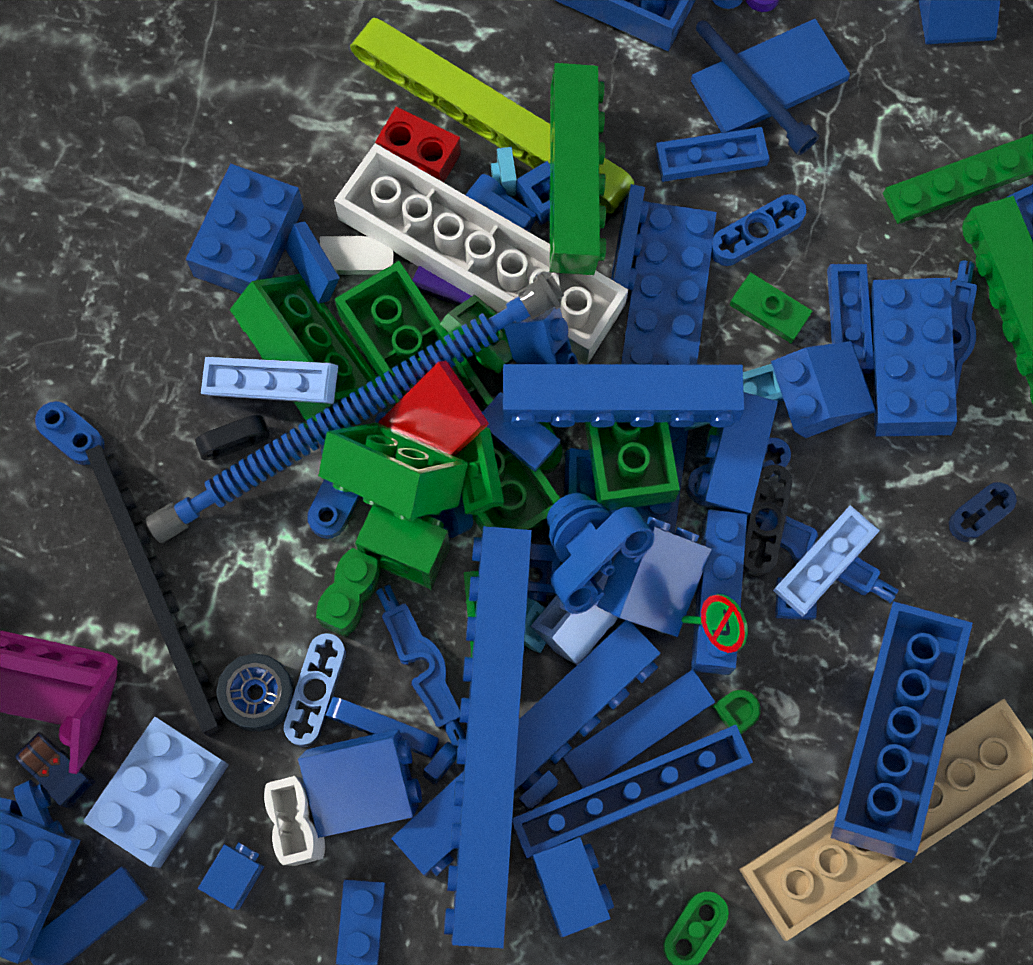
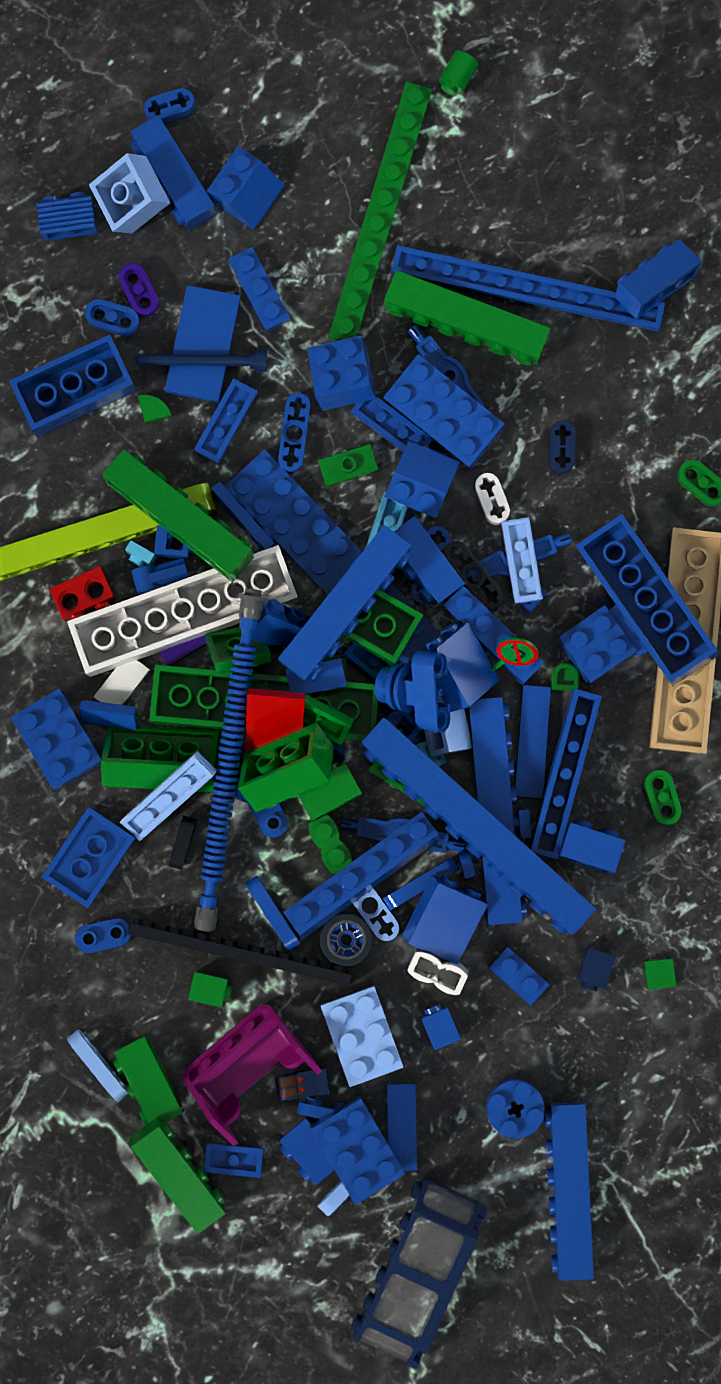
camera: 50 degrees left, 10 degrees up
(89, 585) = (210, 989): none -> green brick
(143, 355) = (88, 857): none -> blue plate
(225, 590) = (272, 913): none -> blue beam
(337, 649) = (362, 875): none -> blue brick
(664, 79) = (153, 409): none -> green tile
(803, 715) = (596, 645): none -> blue brick
(847, 738) = (627, 629): none -> blue tile
(856, 476) = (498, 497): none -> white beam
(860, 222) = (341, 373): none -> blue brick
(871, 90) = (259, 289): none -> blue plate

